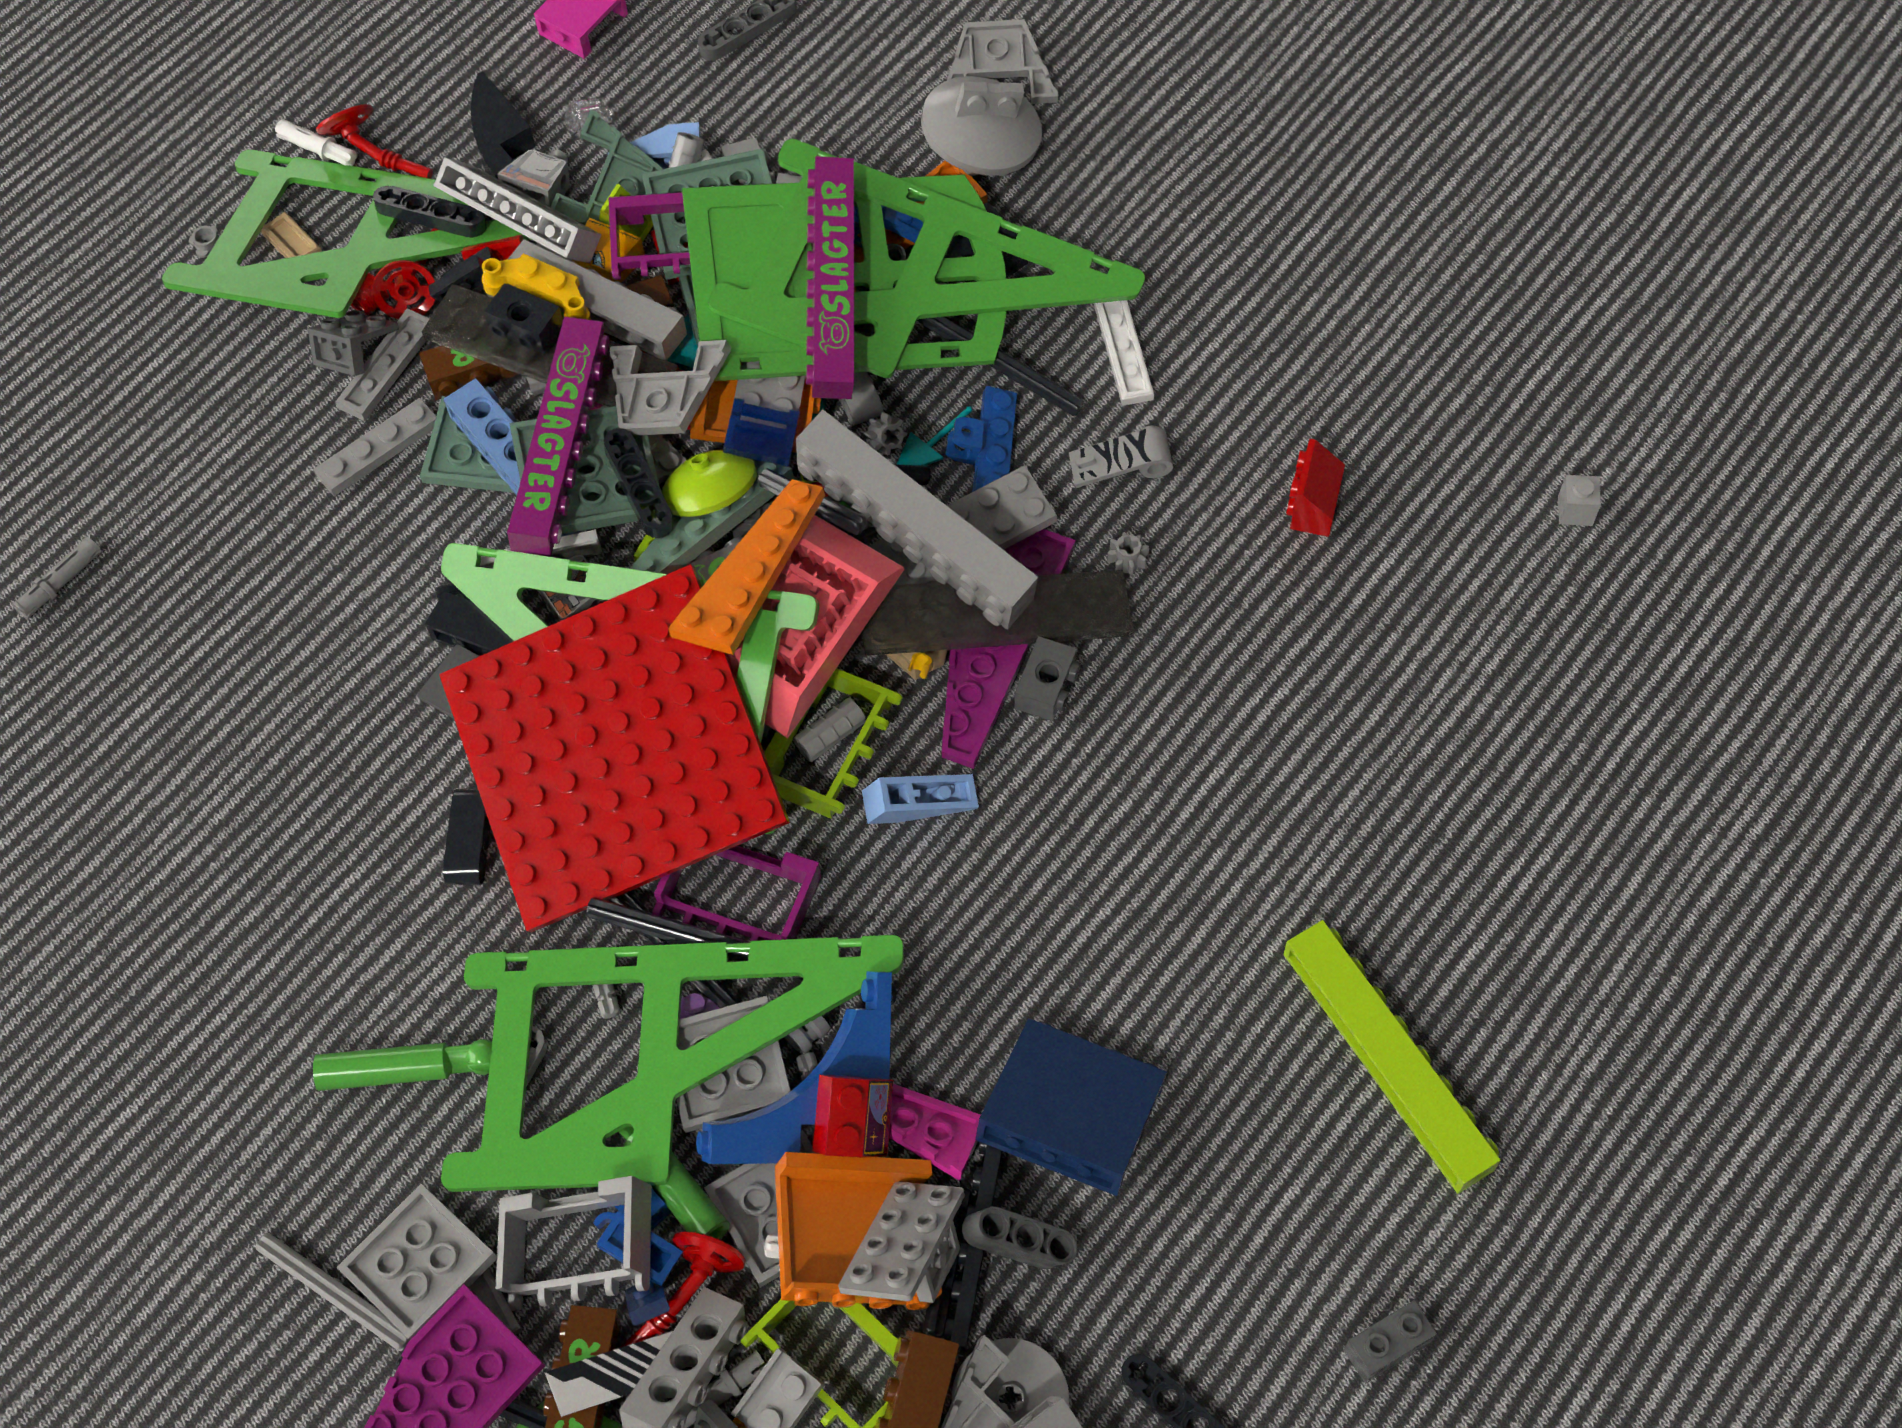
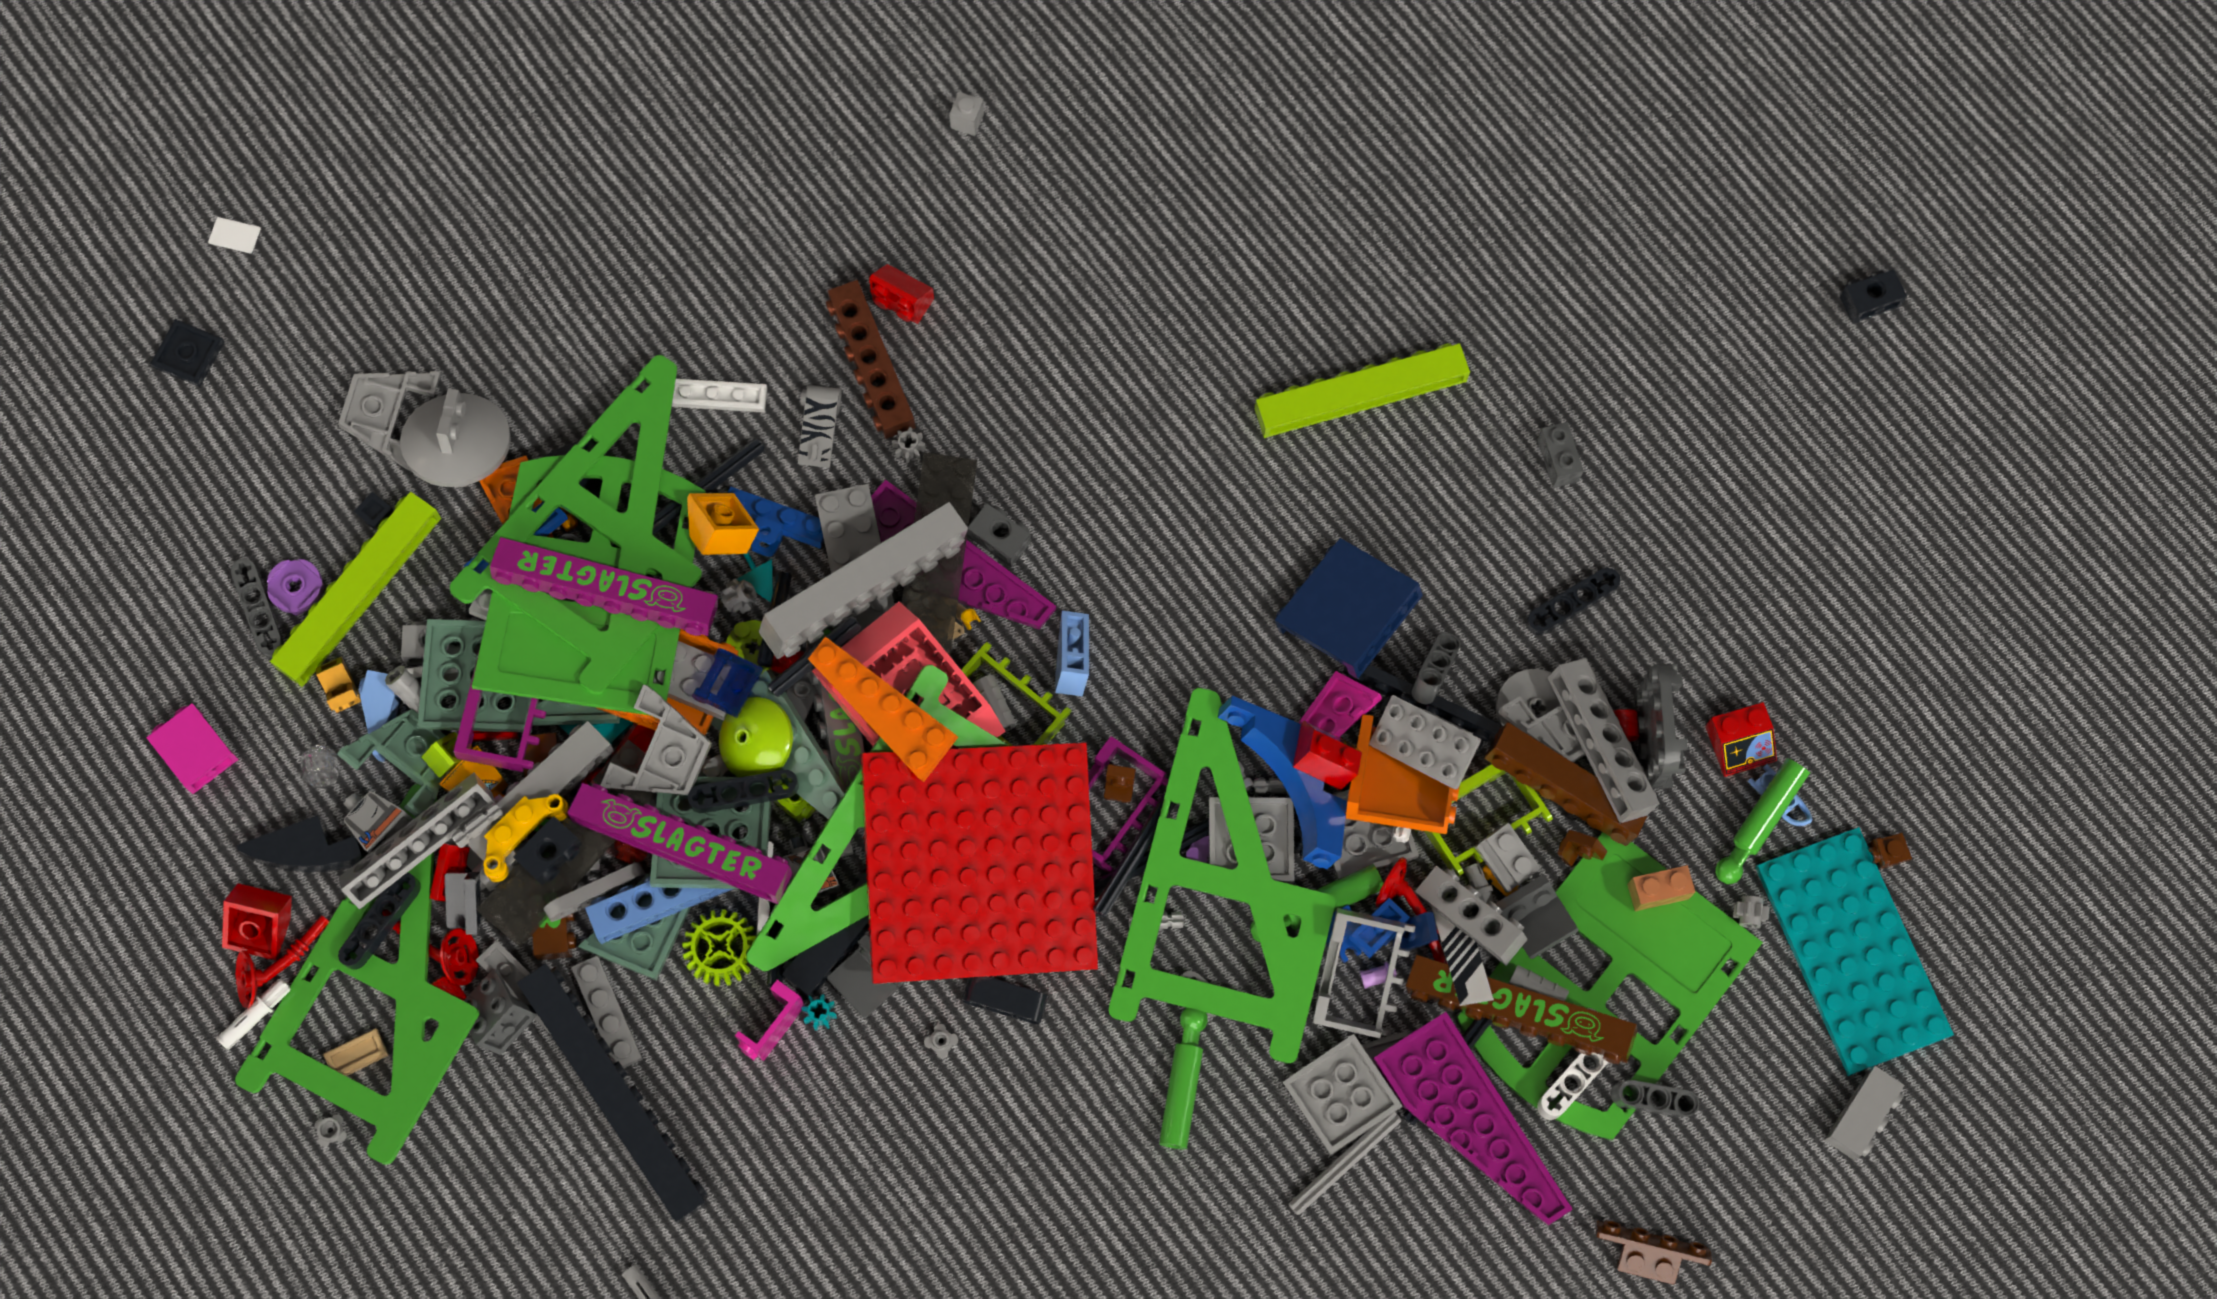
camera: 80 degrees left, 10 degrees up
(278, 469) = (612, 1093): none -> black brick
(403, 610) = (793, 1005): none -> dark pink panel
(411, 789) = (941, 1033): none -> light grey plate
(413, 114) = (255, 921): none -> red slope
(413, 646) = (824, 1018): none -> teal gear
(466, 518) = (713, 958): none -> lime gear
(489, 375) = (585, 895): none -> light grey beam
(536, 247) = (477, 825): none -> light grey axle
(584, 1264) = (1375, 975): none -> lavender pin
(681, 105) = (338, 685): none -> pearl gold brick
(764, 894) = (1119, 783): none -> reddish brown bracket
(783, 58) = (296, 601): none -> medium lavender plate
(791, 94) = (355, 589): none -> lime brick
(881, 85) = (373, 510): none -> black plate
(956, 379) = (720, 524): none -> light orange slope
(1217, 501) = (851, 298): none -> copper brick

